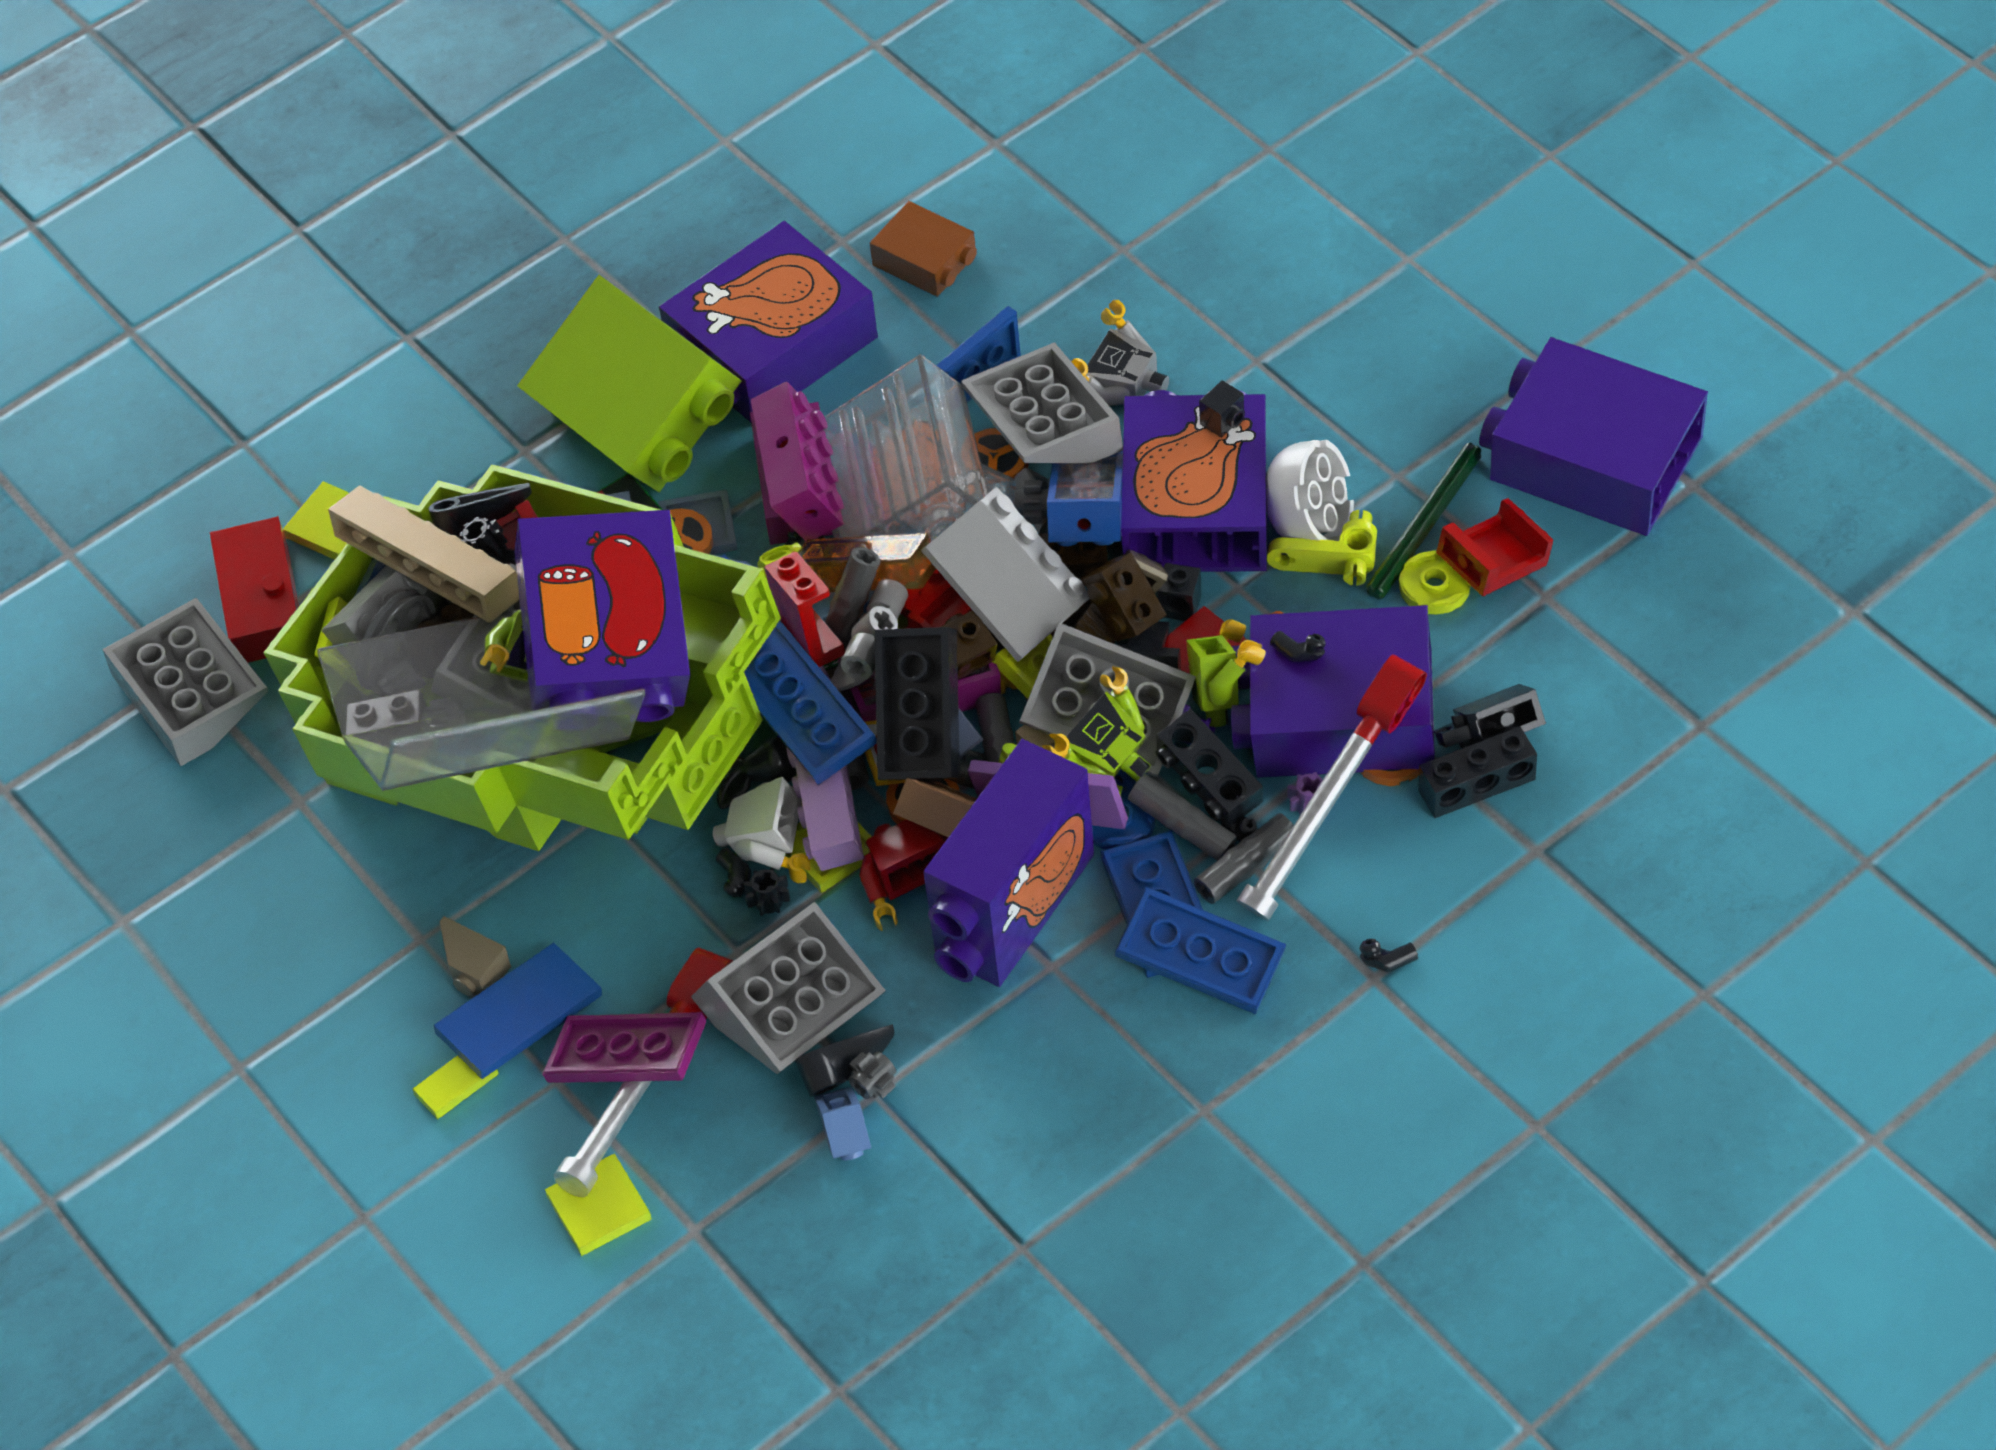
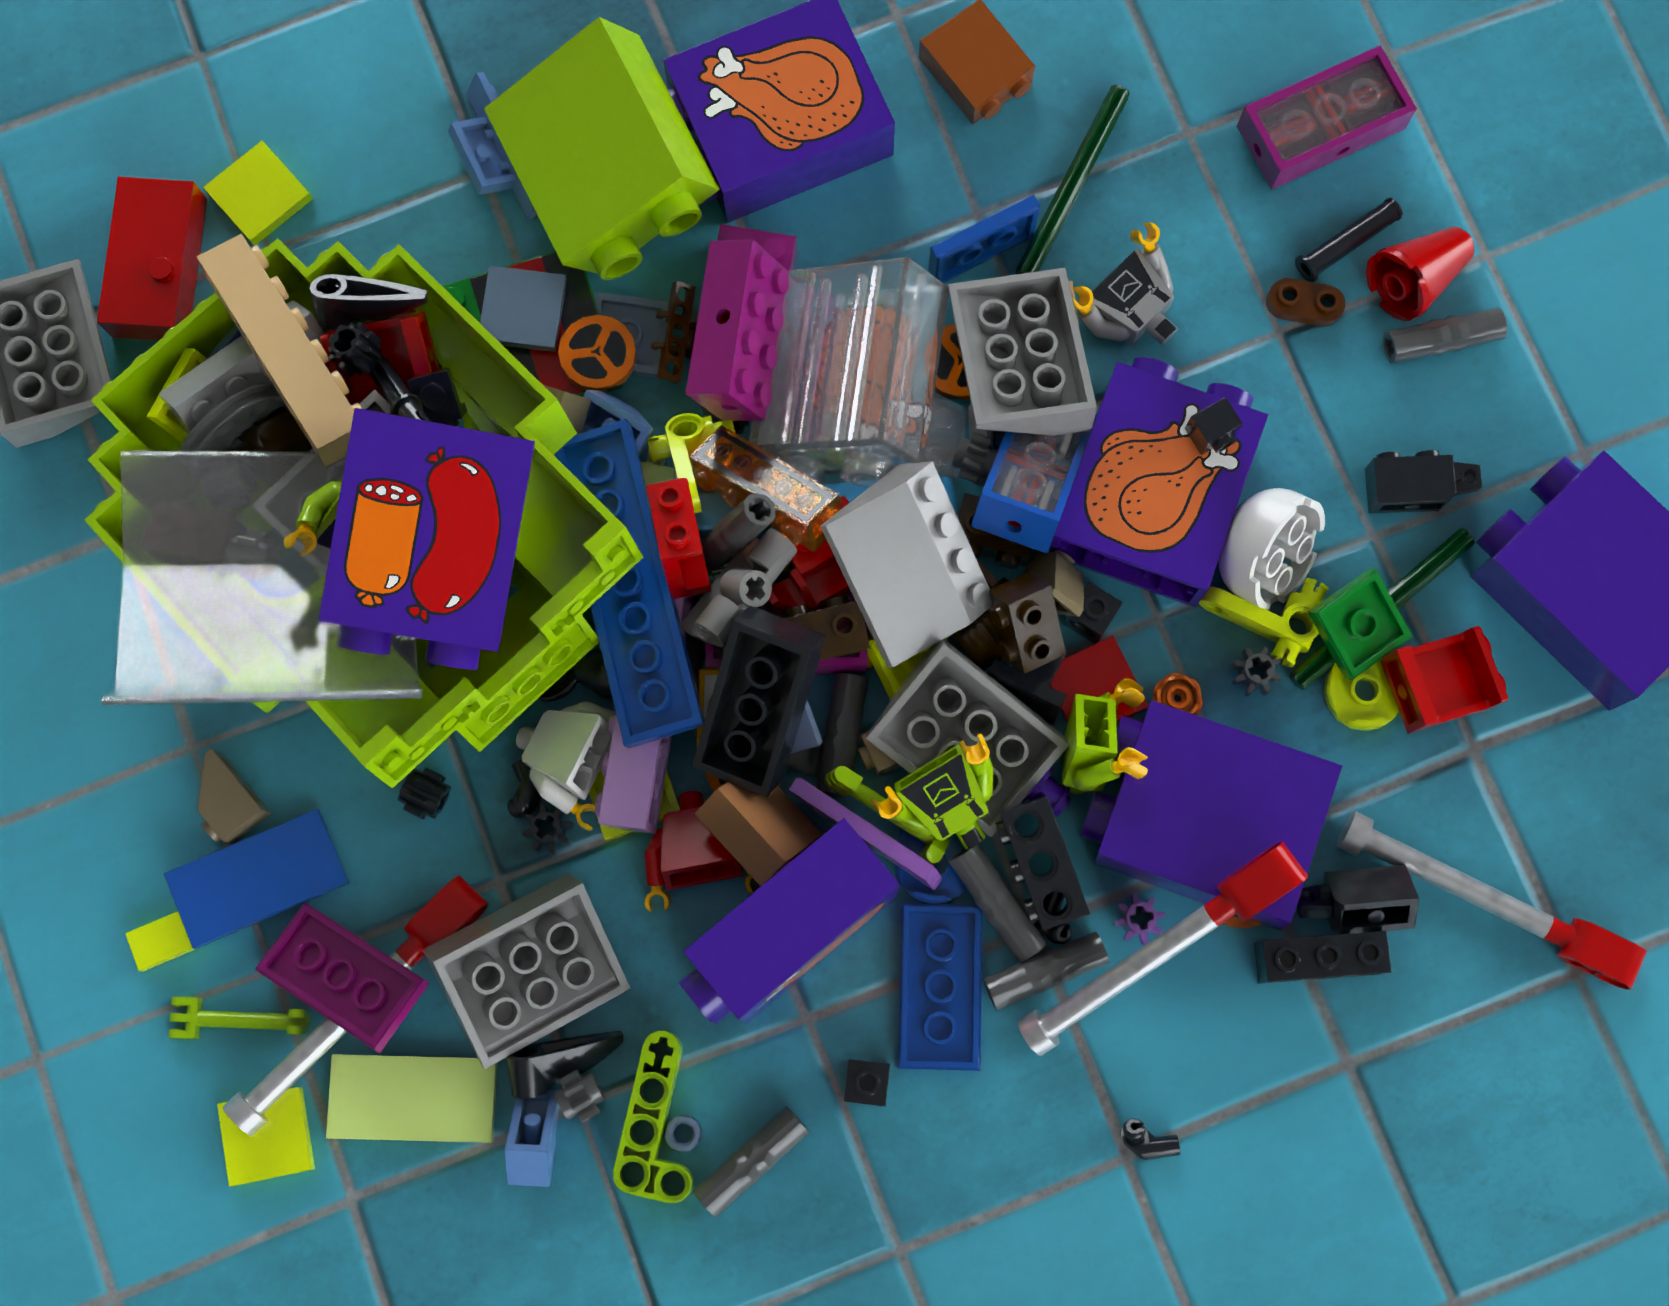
camera: 15 degrees right, 25 degrees up
(492, 1137) = (295, 1021): none -> lime hinge
(532, 428) = (482, 150): none -> medium blue bracket
(646, 898) = (424, 793): none -> black gear
(721, 1132) = (411, 1098): none -> yellowish green tile
(742, 502) = (684, 346): none -> reddish brown piece
(941, 1069) = (657, 1115): none -> lime beam
(971, 1071) = (673, 1123): none -> sand blue axle
(1042, 292) = (1073, 180): none -> dark green axle
(1044, 1078) = (751, 1161): none -> dark grey axle
(1122, 984) = (867, 1082): none -> black brick
(1200, 950) = (960, 1070): blue tile -> none
(1231, 198) = (1326, 117): none -> brick
(1269, 332) = (1306, 304): none -> reddish brown plate
(1284, 281) = (1348, 239): none -> black pin
(1301, 651) = (1186, 774): black arm -> none
(1336, 591) = (1256, 661): none -> dark grey gear
(1350, 278) = (1418, 271): none -> red cone
(1395, 317) = (1445, 335): none -> dark grey axle
(1405, 526) = (1360, 624): none -> green plate
(1415, 423) = (1417, 481): none -> black hinge
(1697, 697) = (1581, 943): none -> piece

